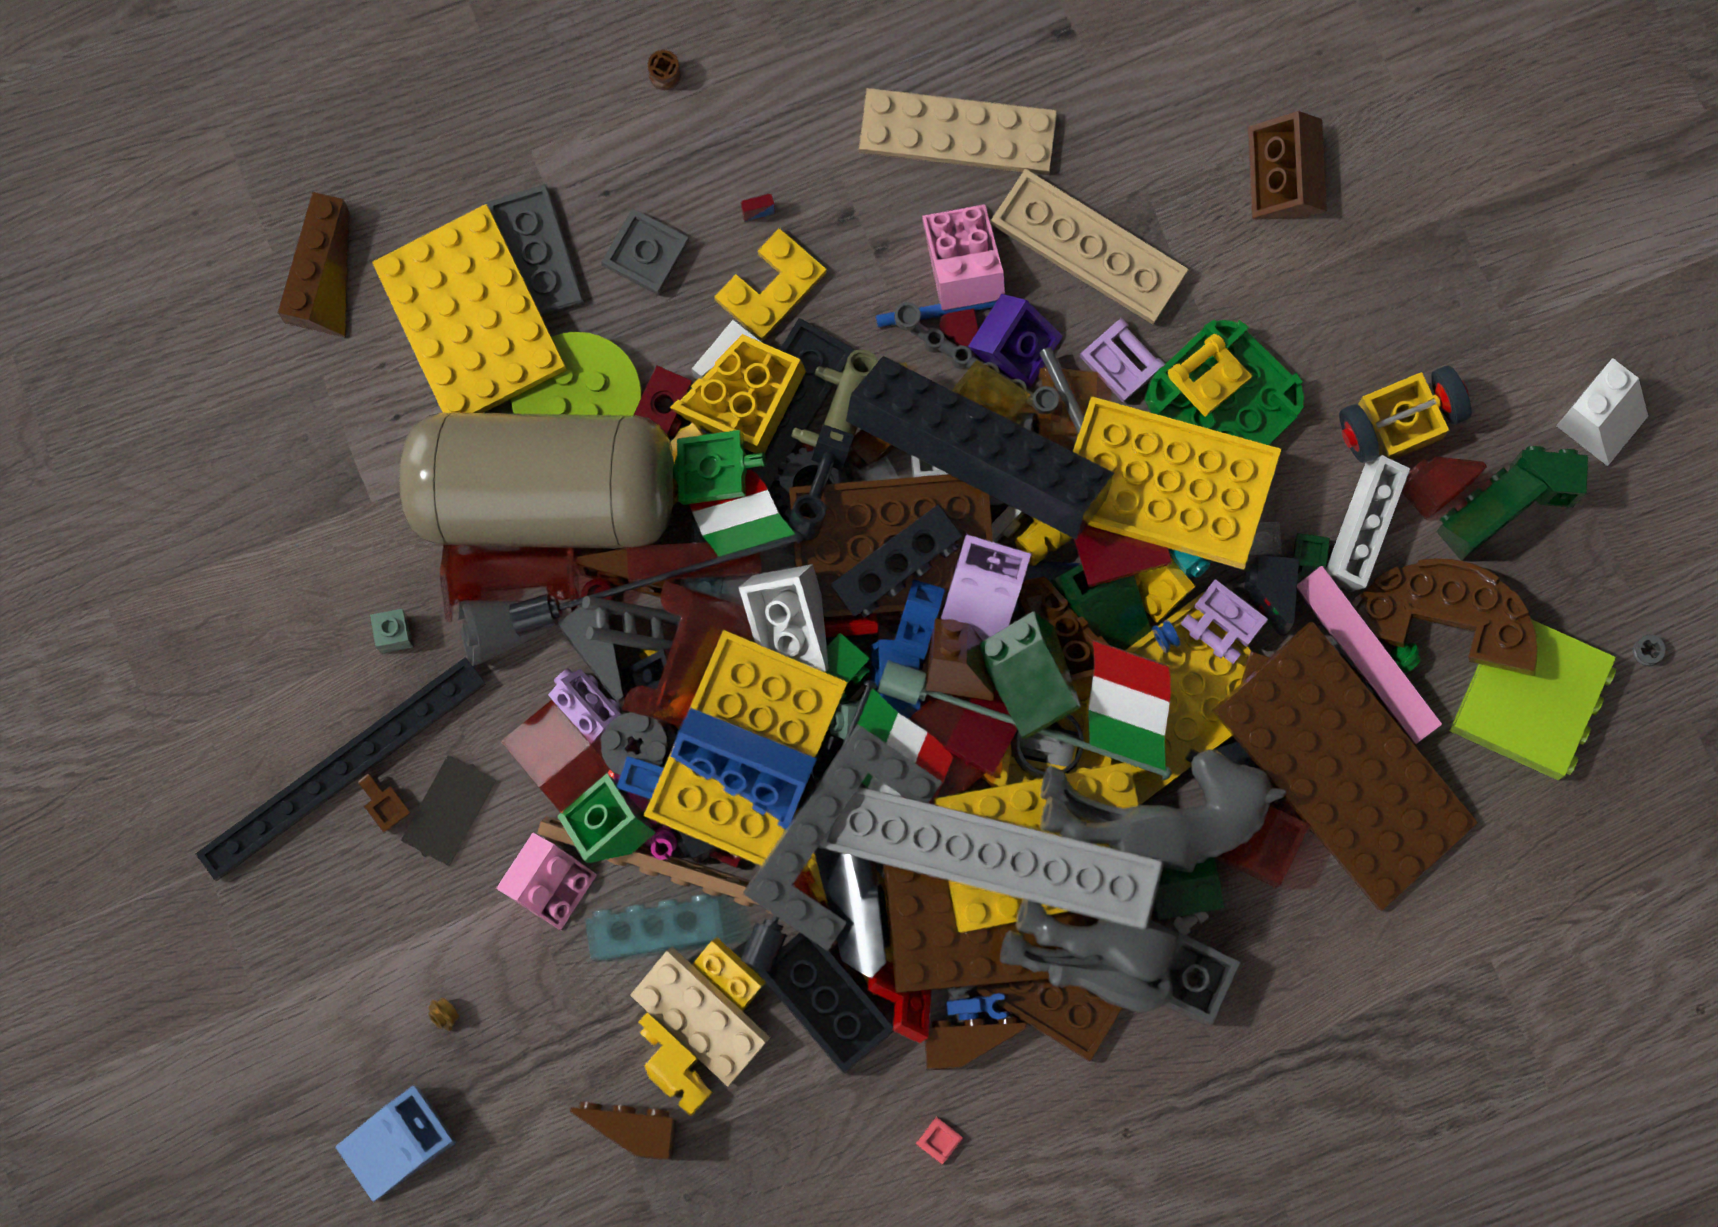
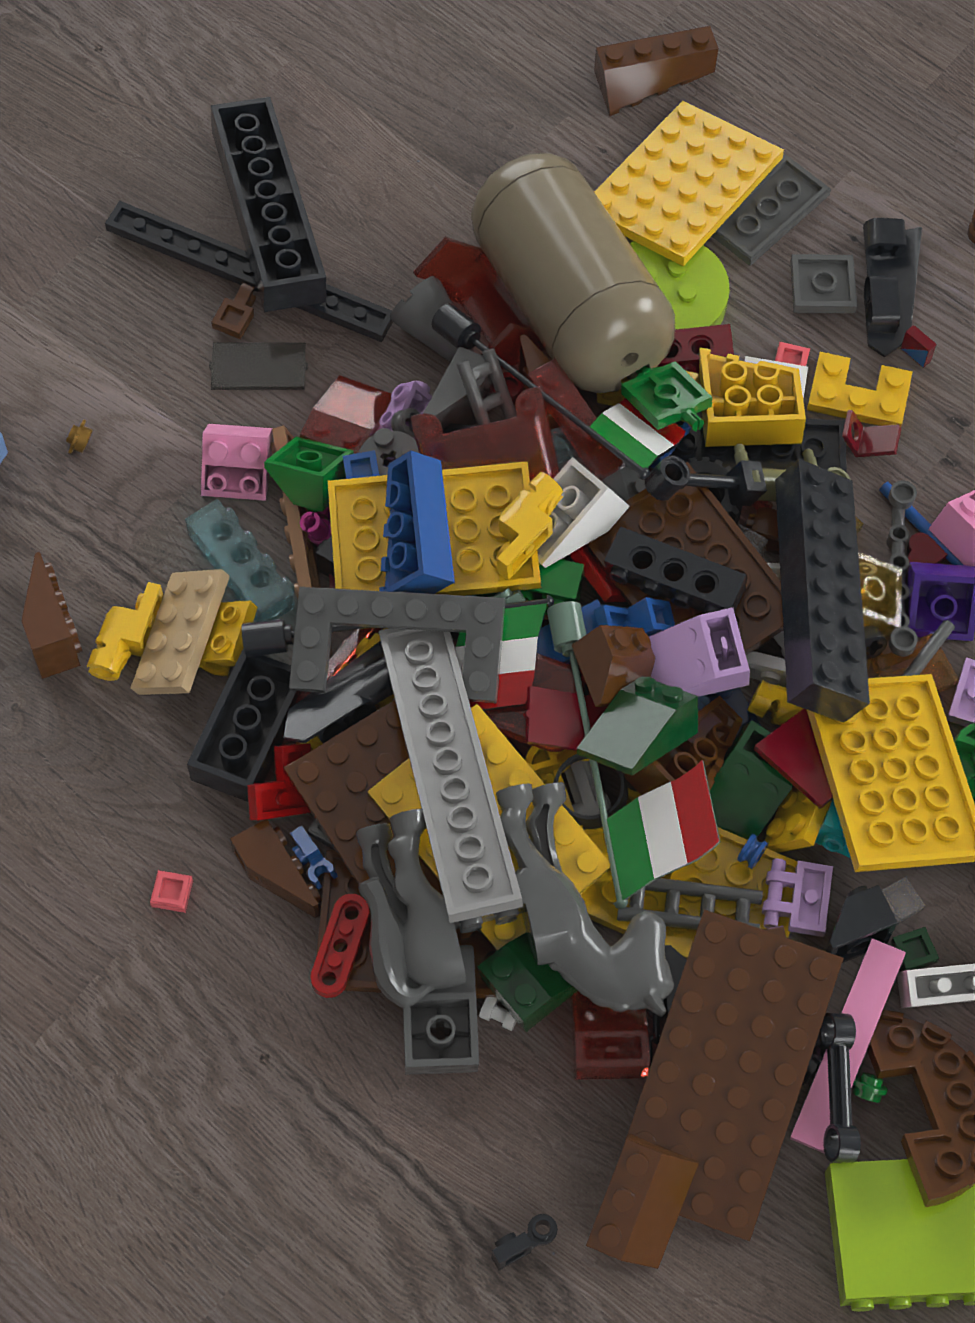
camera: 60 degrees right, 15 degrees down
(285, 715) = (268, 204): none -> black brick
(391, 631) = (381, 246): sand green brick -> none
(597, 715) = (399, 419): none -> dark grey bush
(680, 193) = (890, 281): none -> black panel
(706, 326) = (792, 354): none -> coral tile
(789, 665) = (527, 523): none -> yellow plate
(828, 304) = (870, 440): none -> dark red bracket
(1087, 1030) = (340, 931): none -> red plate
(1204, 708) = (708, 894): none -> dark grey bar
(1392, 1011) = (513, 1247): none -> black plate
(1410, 893) = (642, 1203): none -> reddish brown slope
(1442, 706) = (841, 1138): none -> black piece

